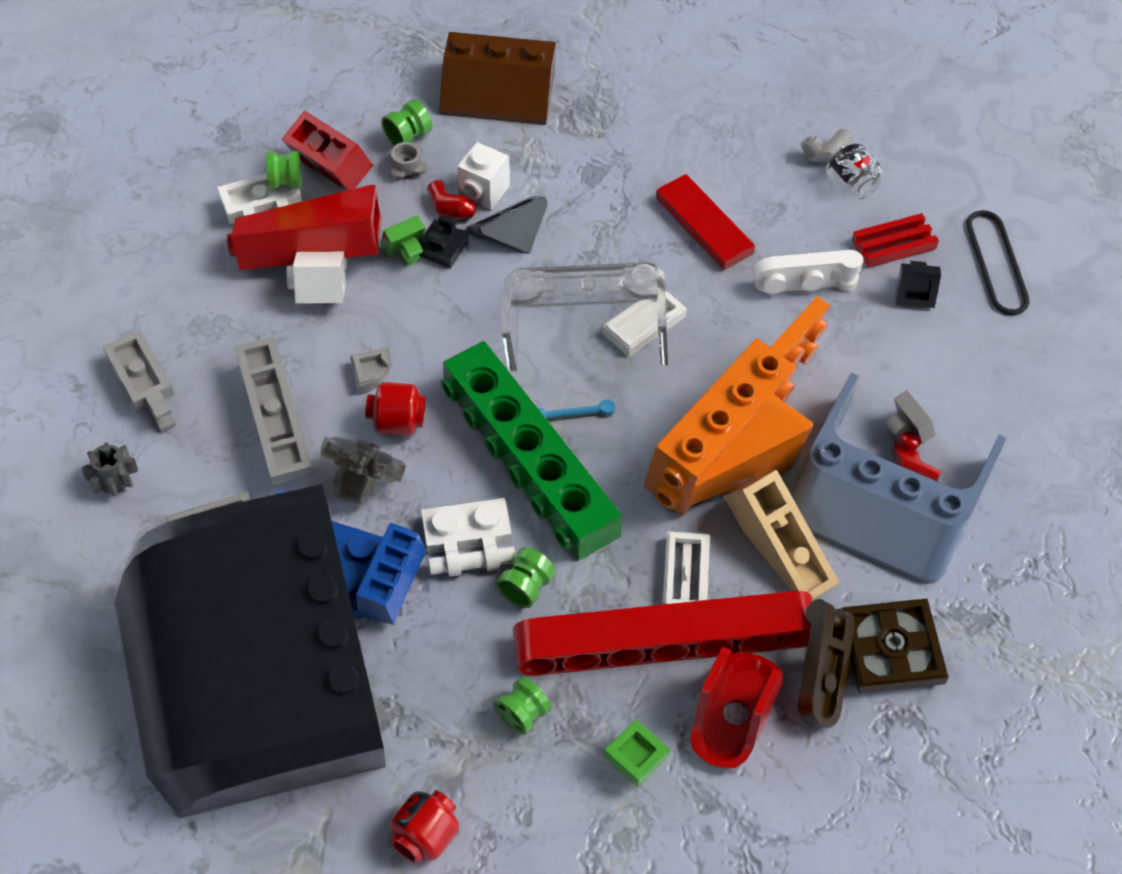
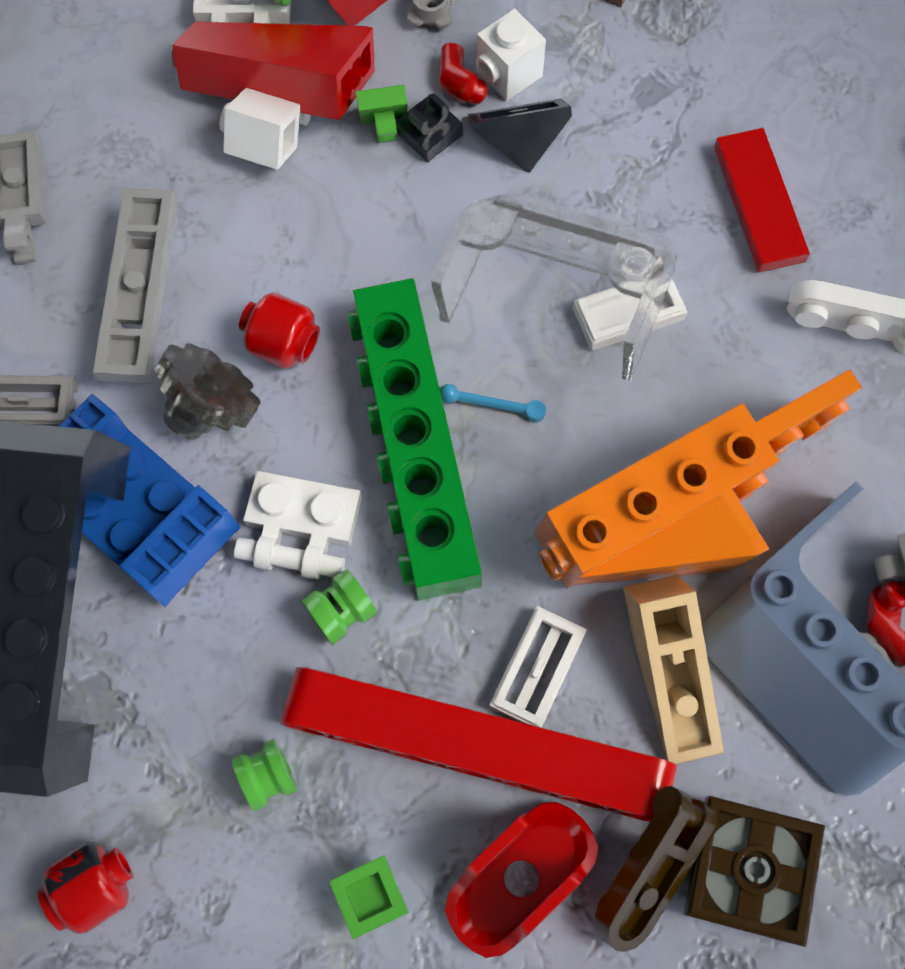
camera: 25 degrees right, 15 degrees up
(370, 368) = (278, 264): light grey tile -> none

